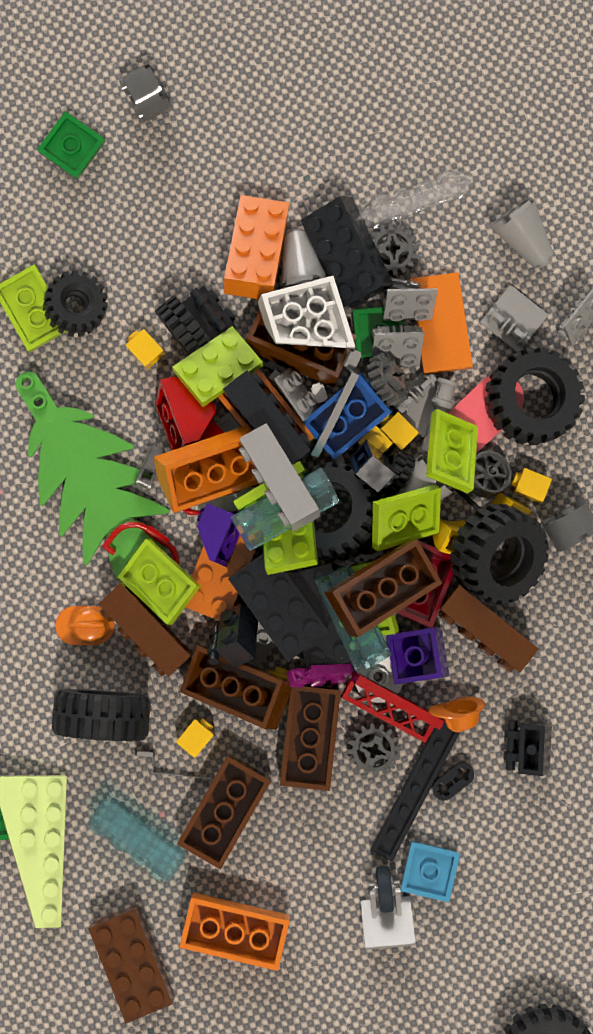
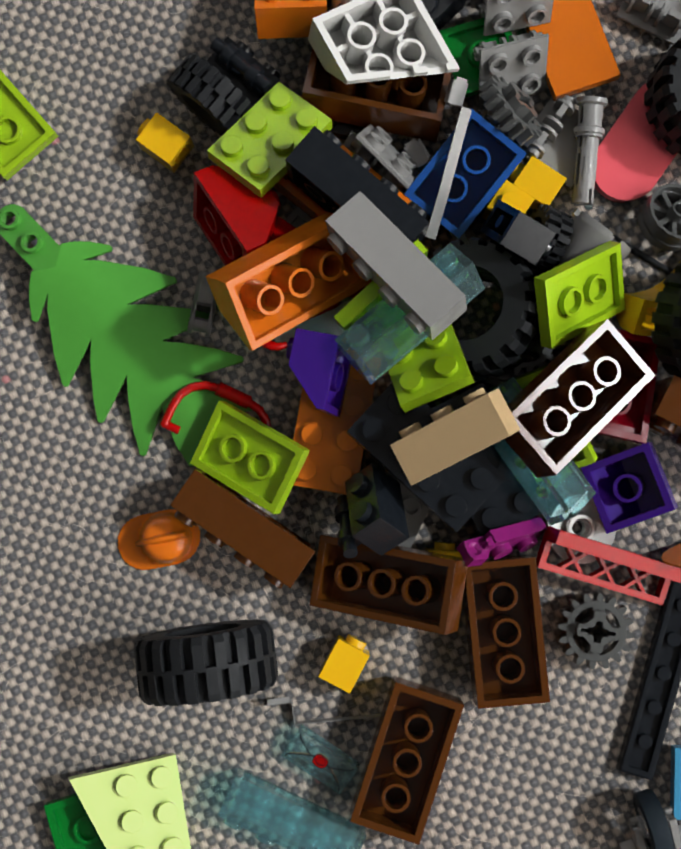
camera: 10 degrees left, 0 degrees up
(79, 287) = (58, 75): black tyre -> none
(166, 800) = (320, 759): none -> clear light blue tile
(295, 596) = (454, 434): none -> tan brick
(452, 451) = (622, 192): lime plate -> none

